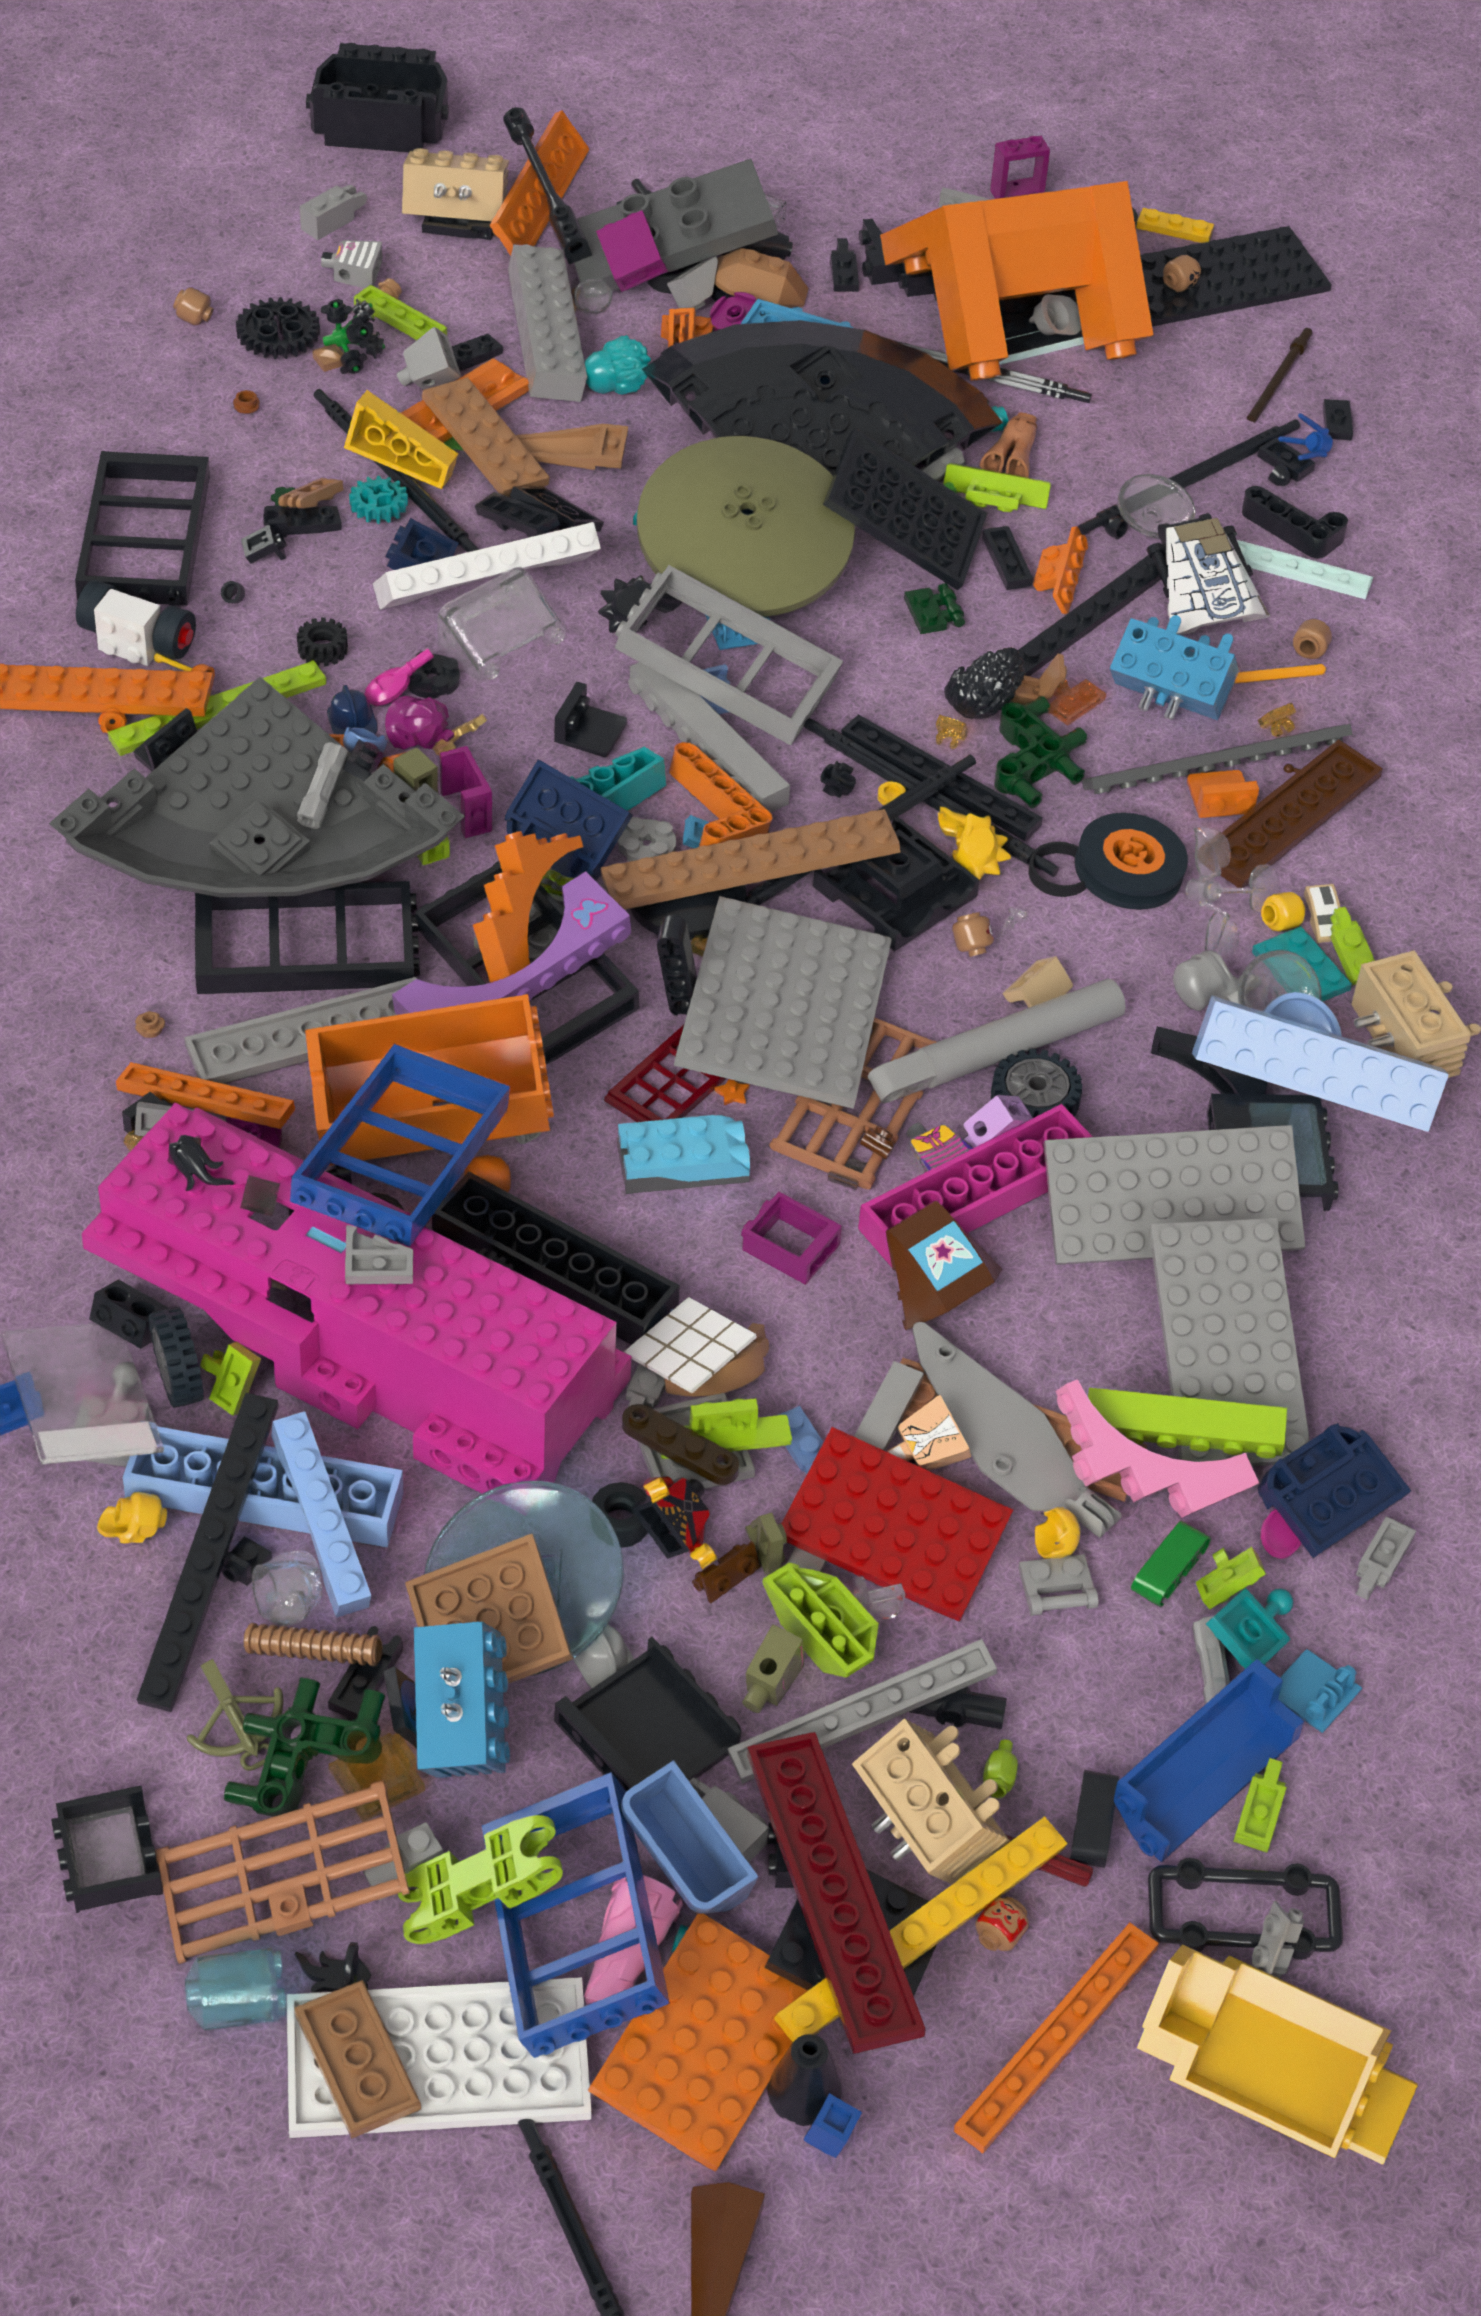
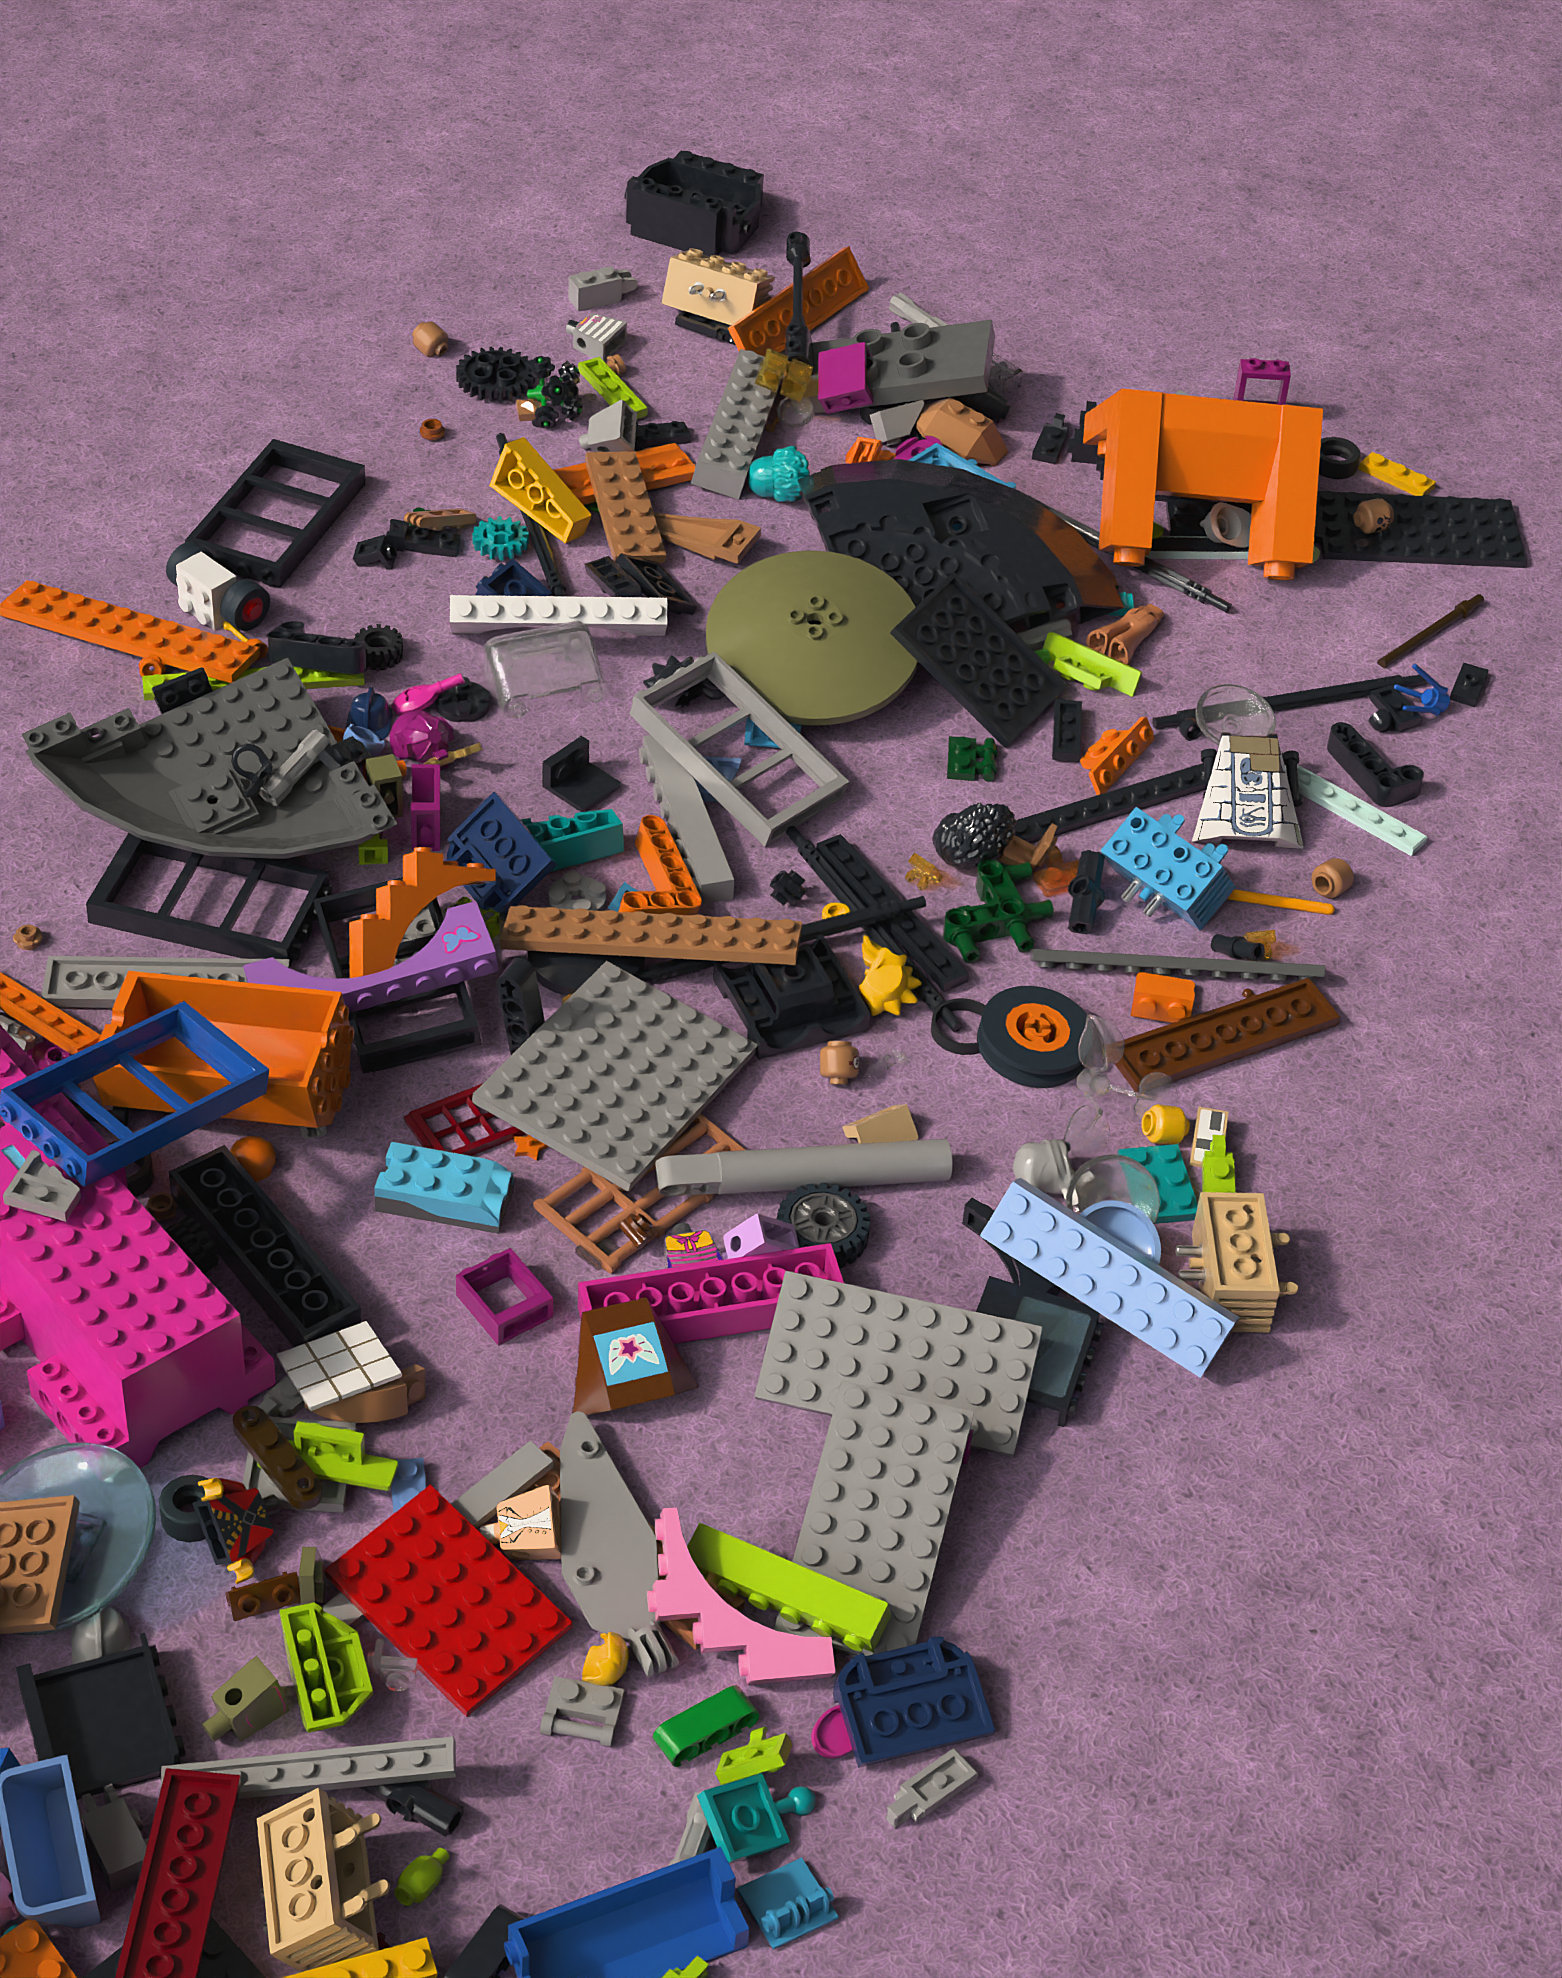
camera: 20 degrees right, 5 degrees down
(229, 589) = (324, 585): black hinge -> none
(271, 662) = (316, 650): none -> black beam
(293, 805) = (257, 779): none -> black piece
(583, 260) = (795, 373): none -> clear yellow piece
(642, 164) = (908, 310): none -> light grey axle
(1108, 711) = (1086, 892): none -> black piece
(1265, 727) = (1237, 947): none -> black pin

